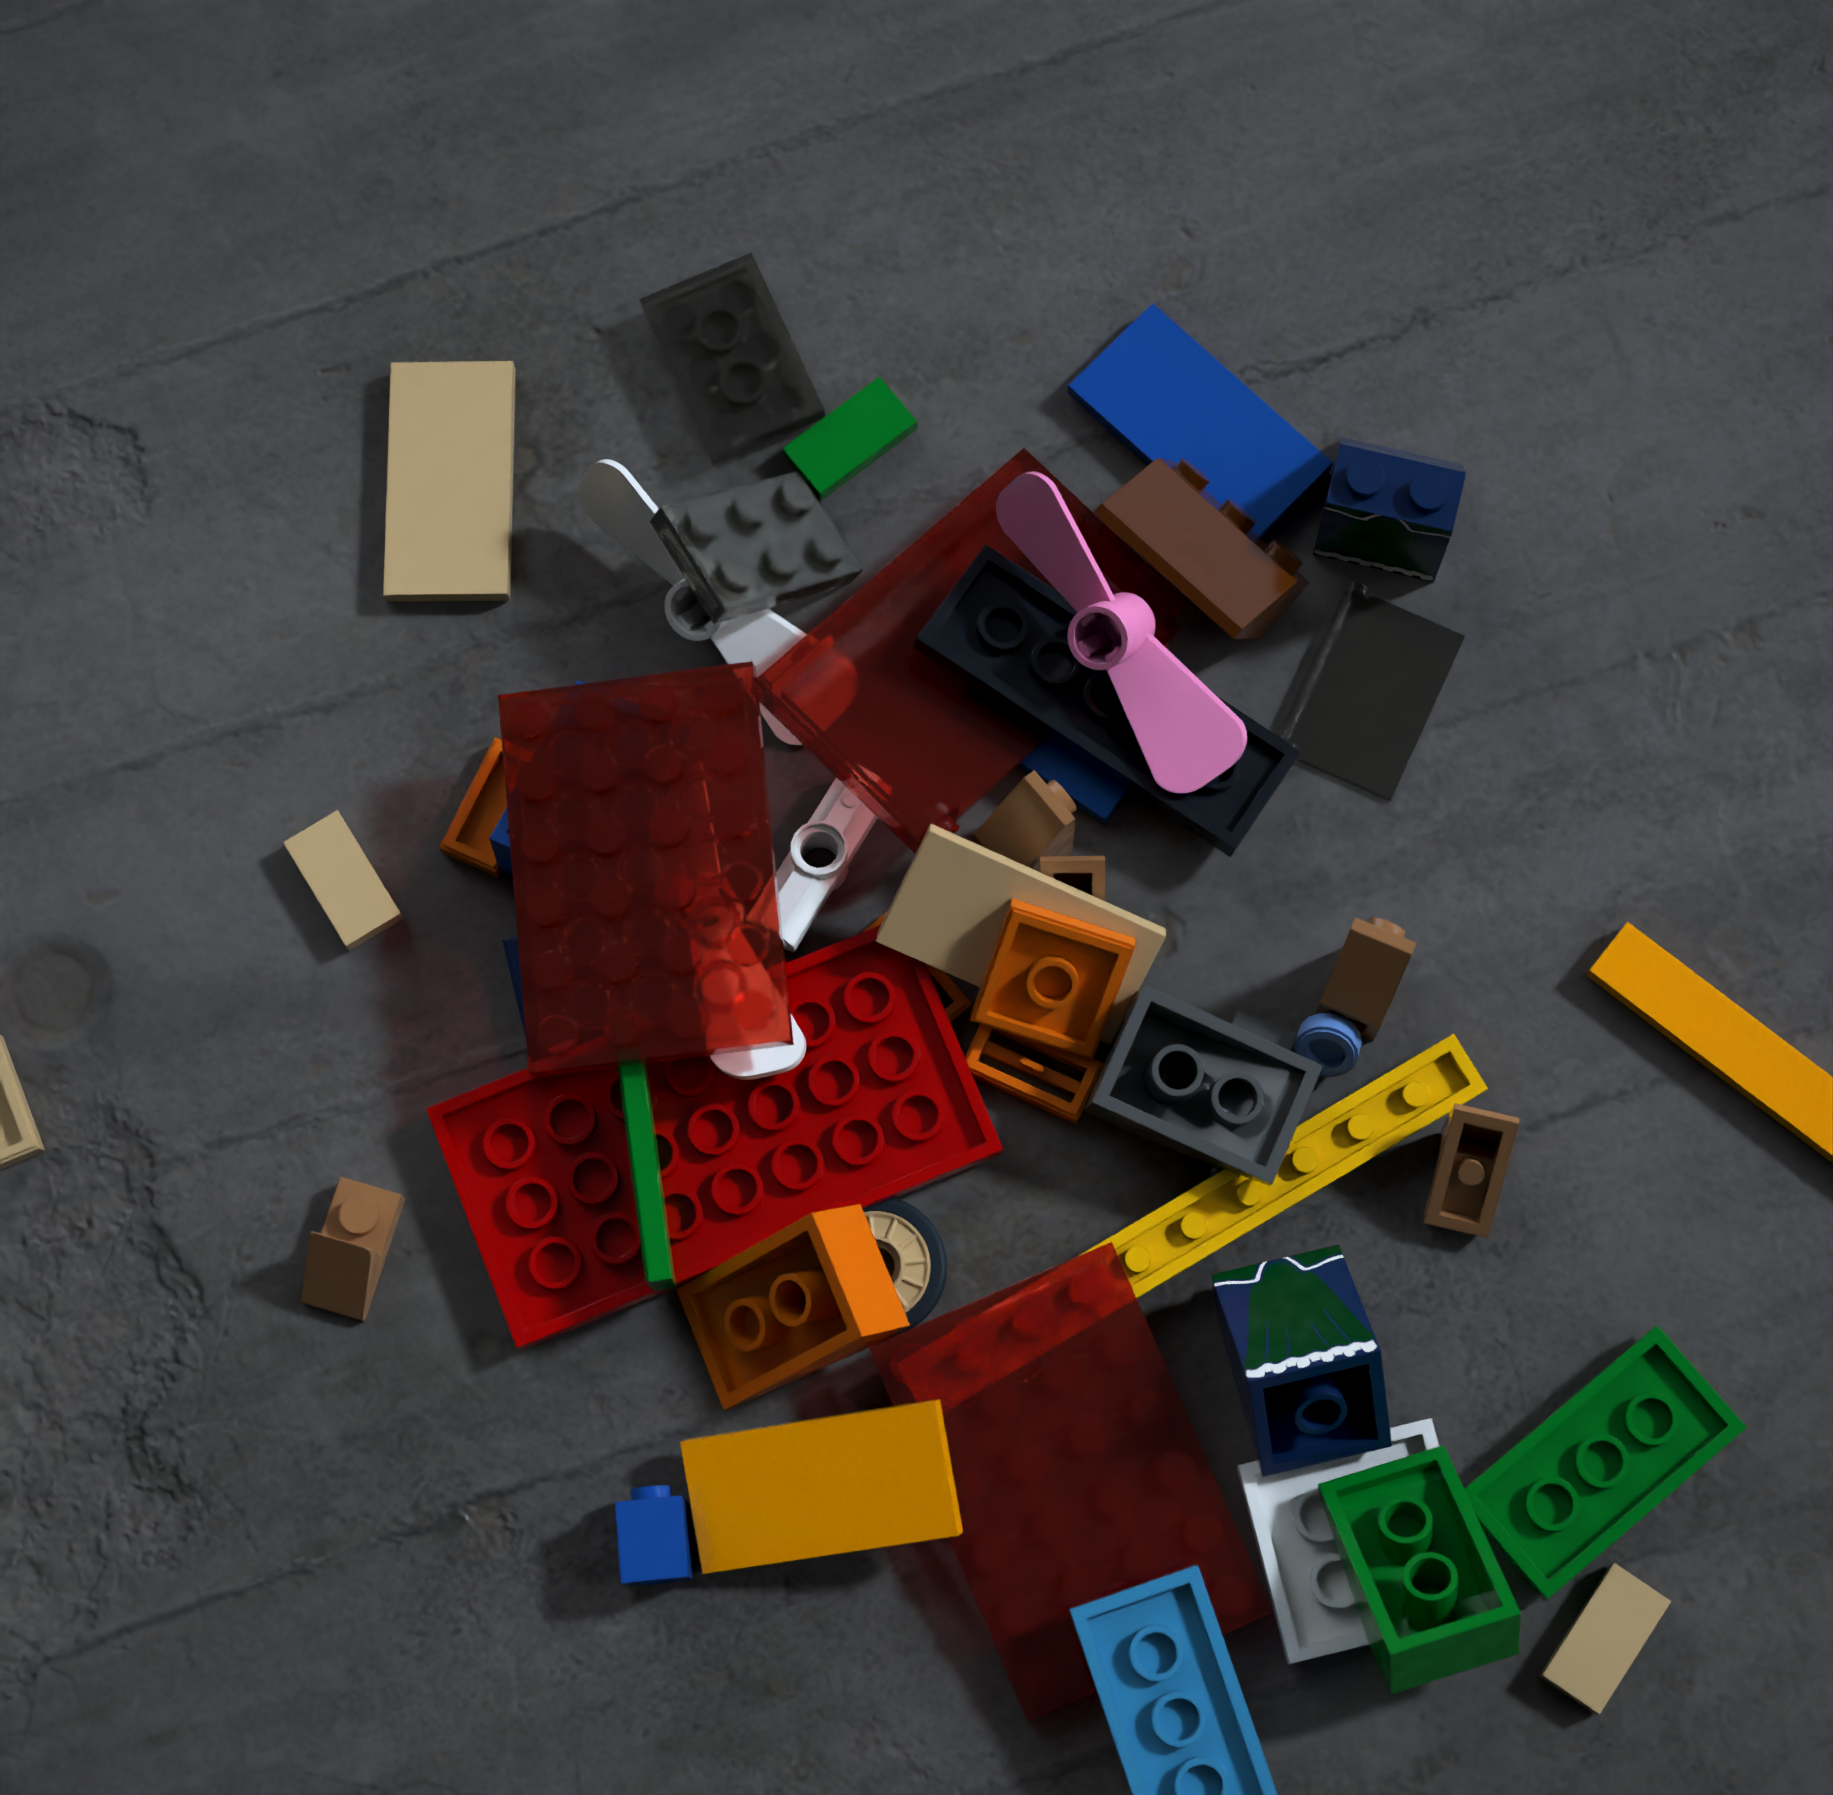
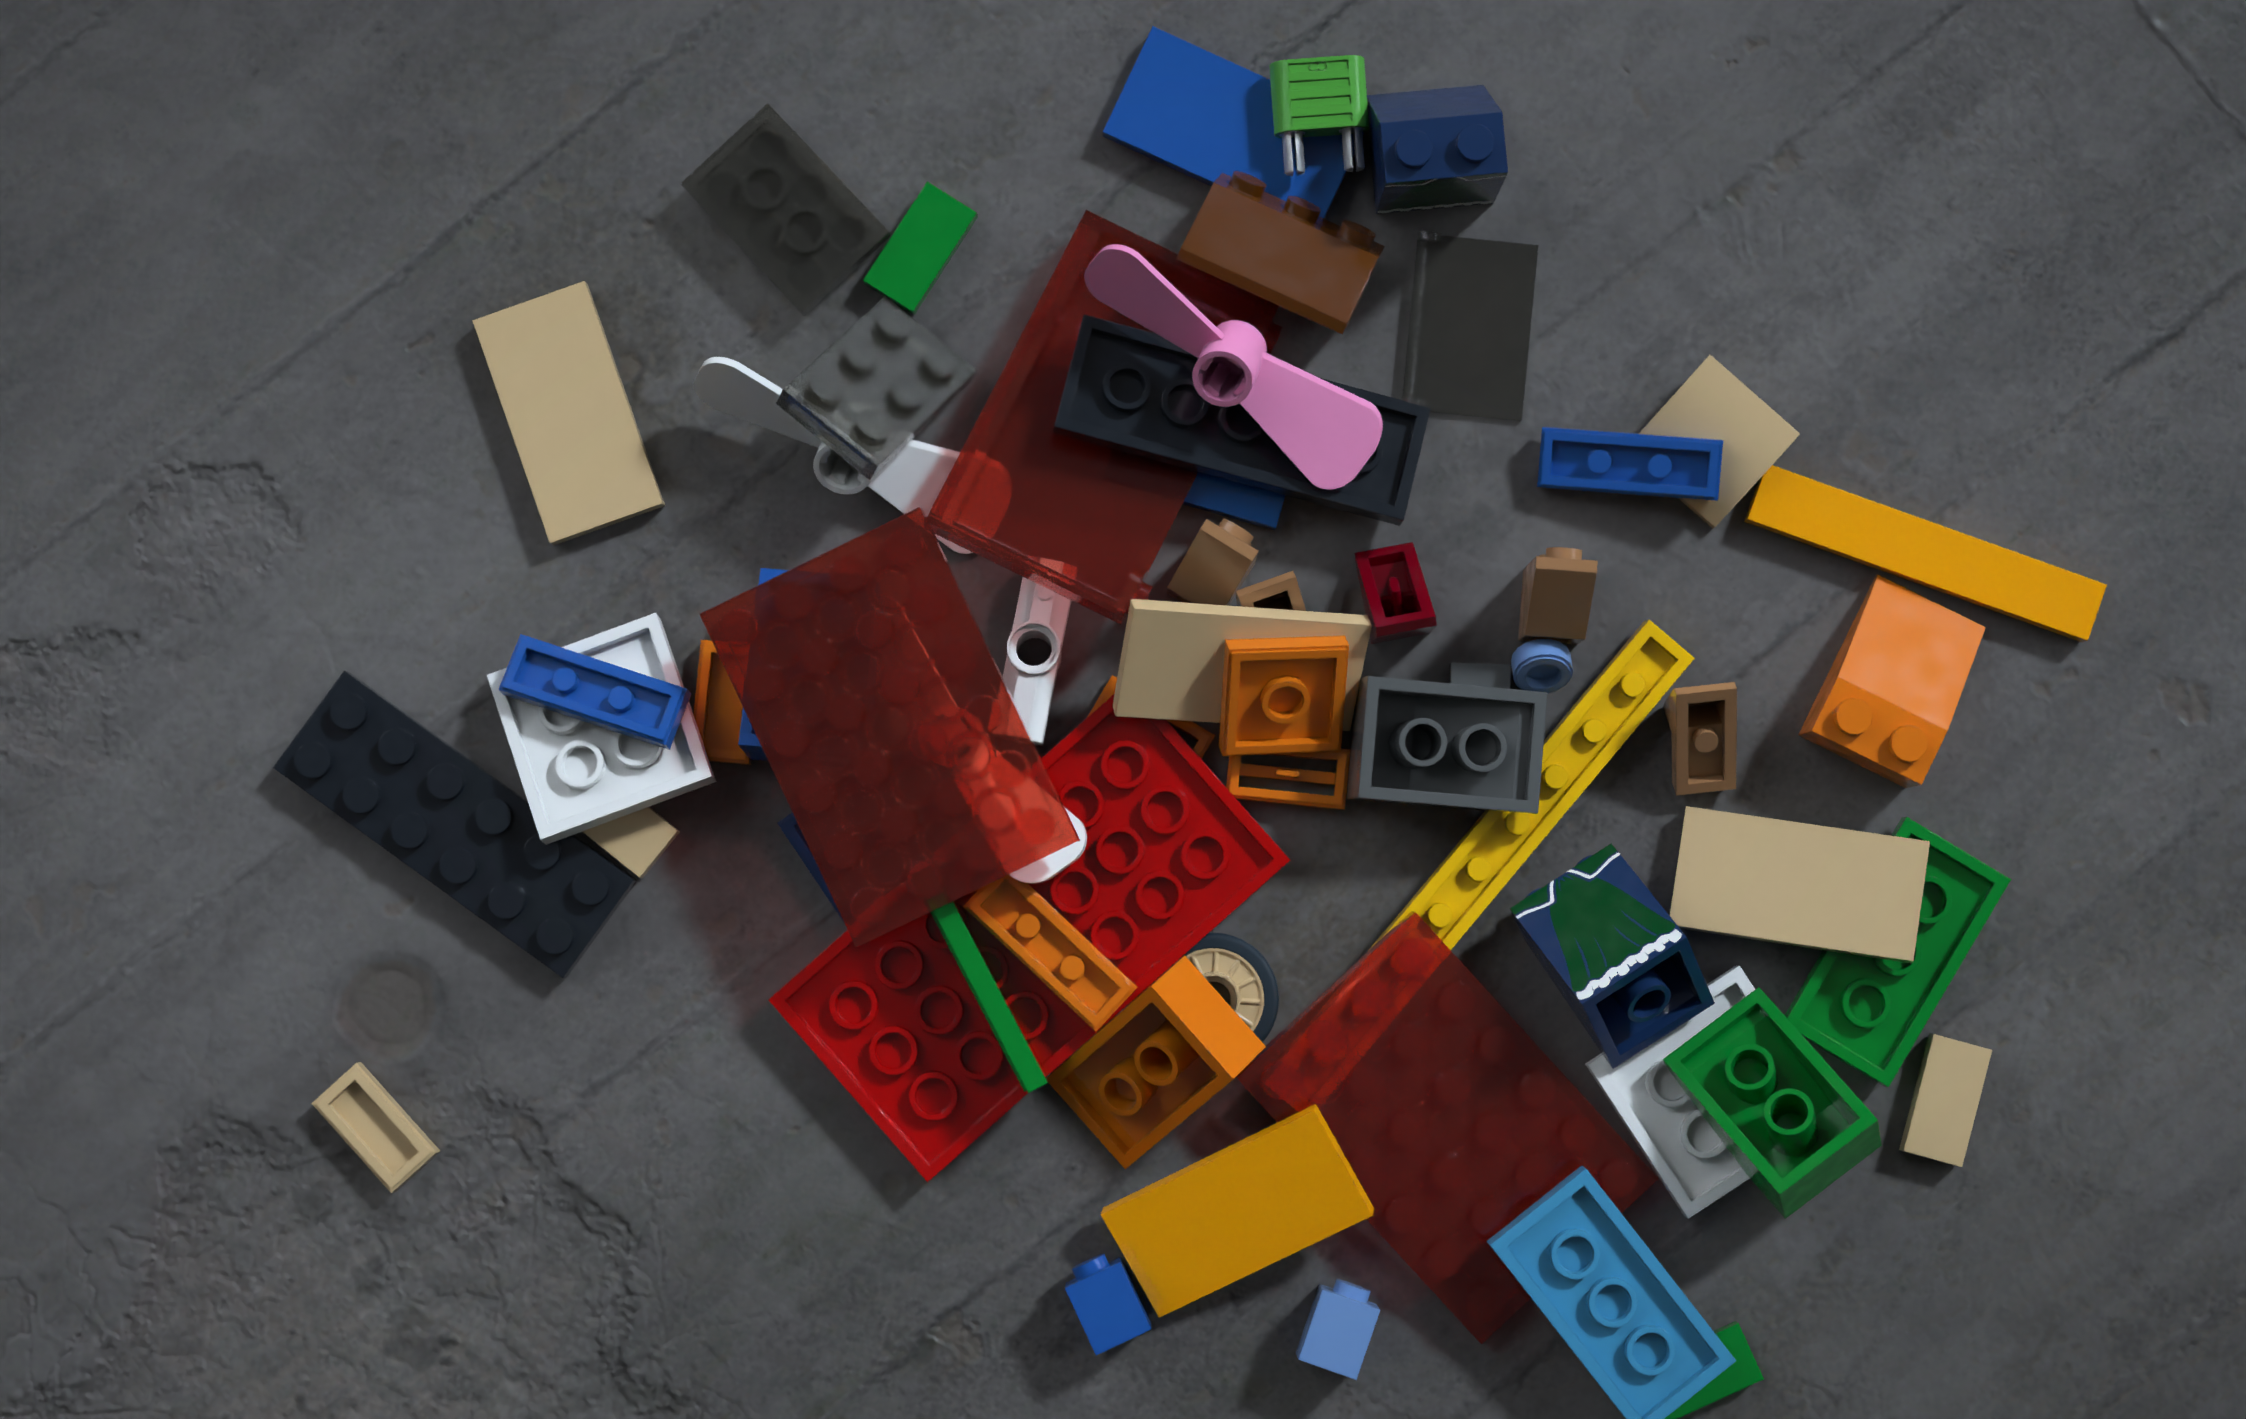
camera: 20 degrees left, 10 degrees up
(187, 836) = (453, 824): none -> black plate
(351, 1249) = (747, 1143): medium nougat slope -> none
(363, 786) = (592, 775): none -> white plate
(370, 746) = (595, 691): none -> blue tile
(727, 1150) = (1051, 949): none -> orange tile
(884, 1649) = (1338, 1328): none -> medium blue brick
(1202, 925) = (1394, 593): none -> dark red slope
(1293, 422) = (1320, 100): none -> bright green piece
(1486, 874) = (1630, 463): none -> blue tile
(1522, 1355) = (1799, 884): none -> tan tile
(1577, 881) = (1723, 408): none -> tan slope
(1687, 1187) = (1894, 684): none -> orange slope

